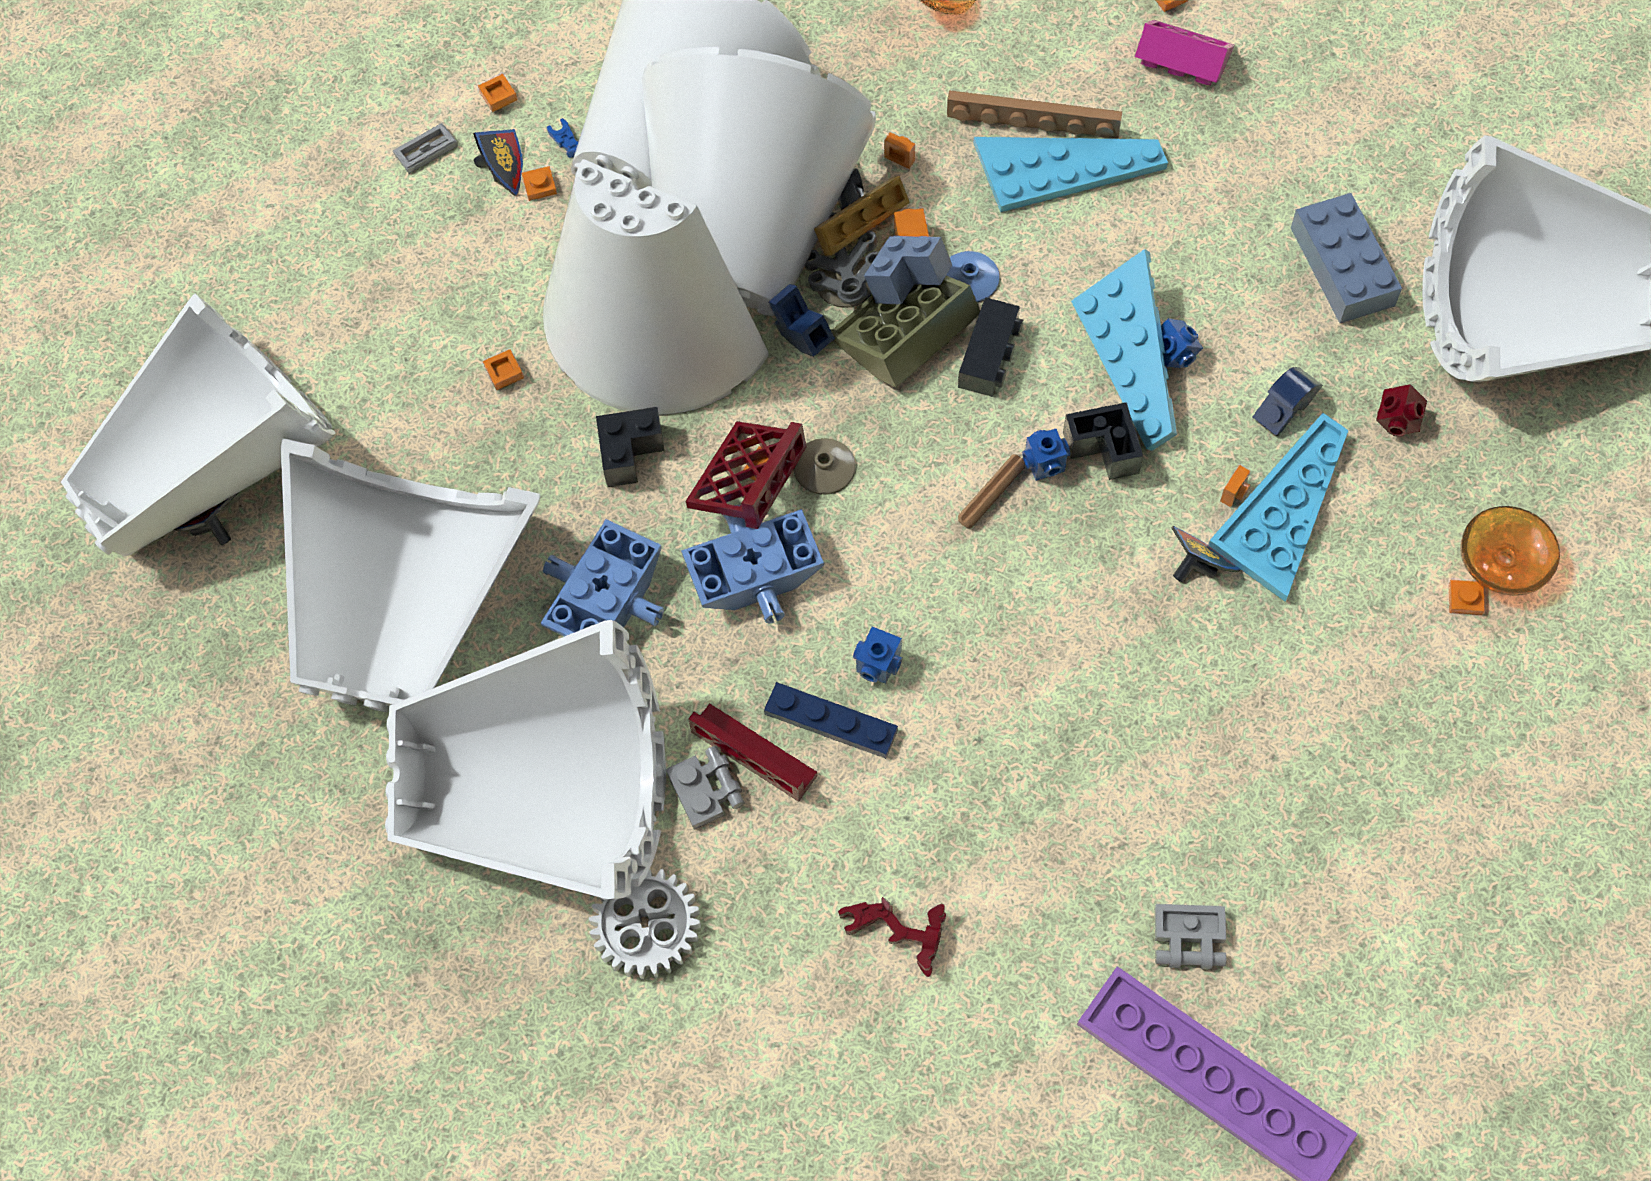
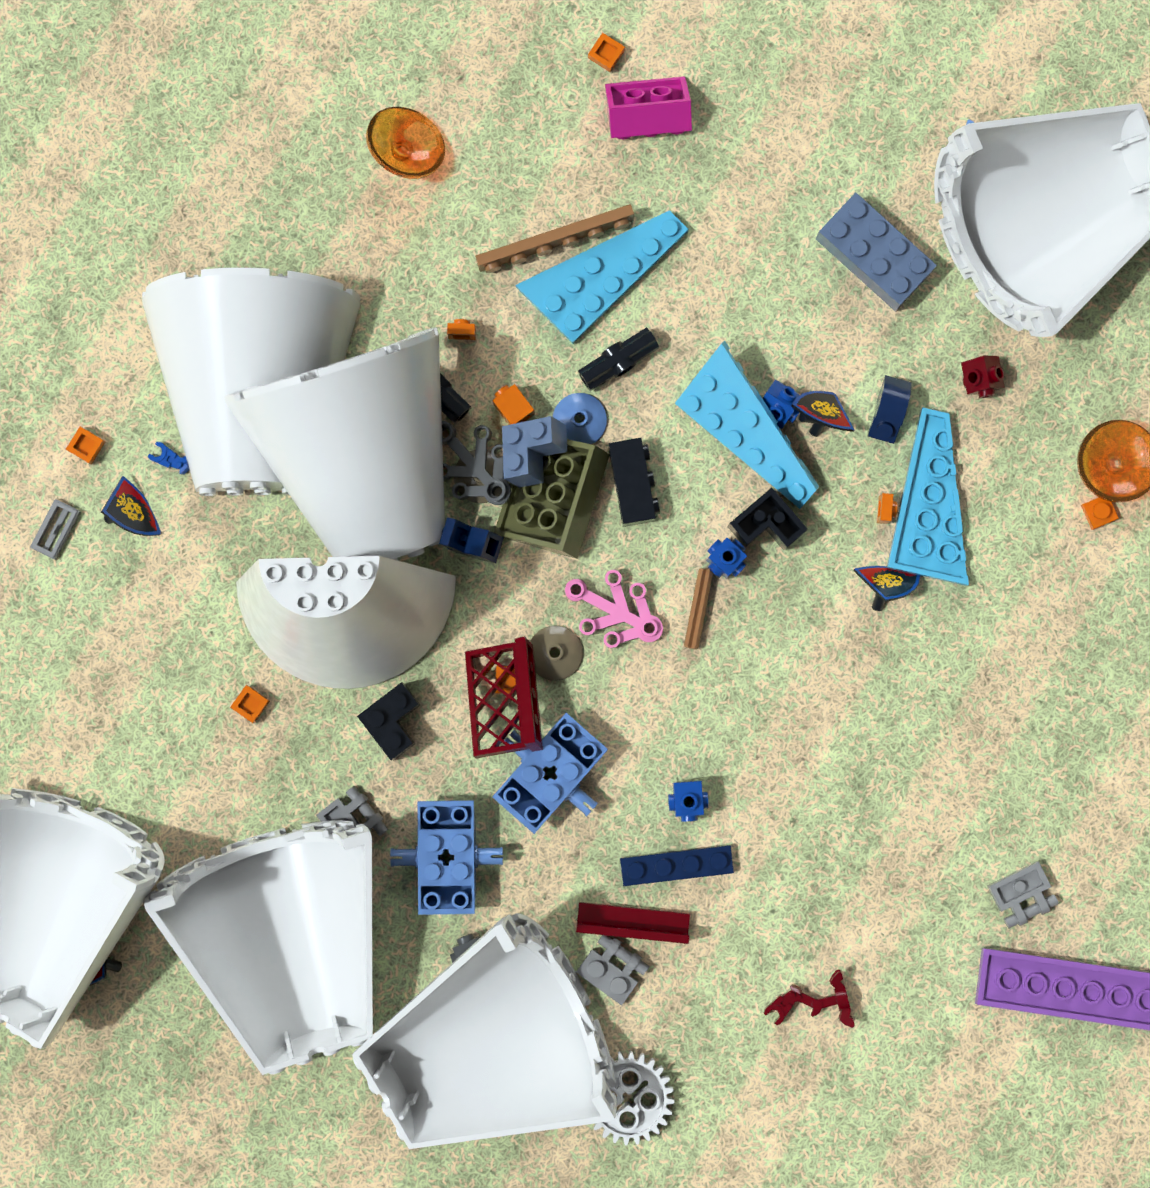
camera: 30 degrees left, 20 degrees up
(539, 183) = (173, 514): orange plate -> none
(552, 528) = (338, 811): none -> light grey plate
(861, 215) = (468, 417): pearl gold tile -> none
(907, 455) = (618, 612): none -> bright pink plant
(1037, 238) = (618, 359): none -> black piece
(1213, 367) = (822, 410): none -> shield

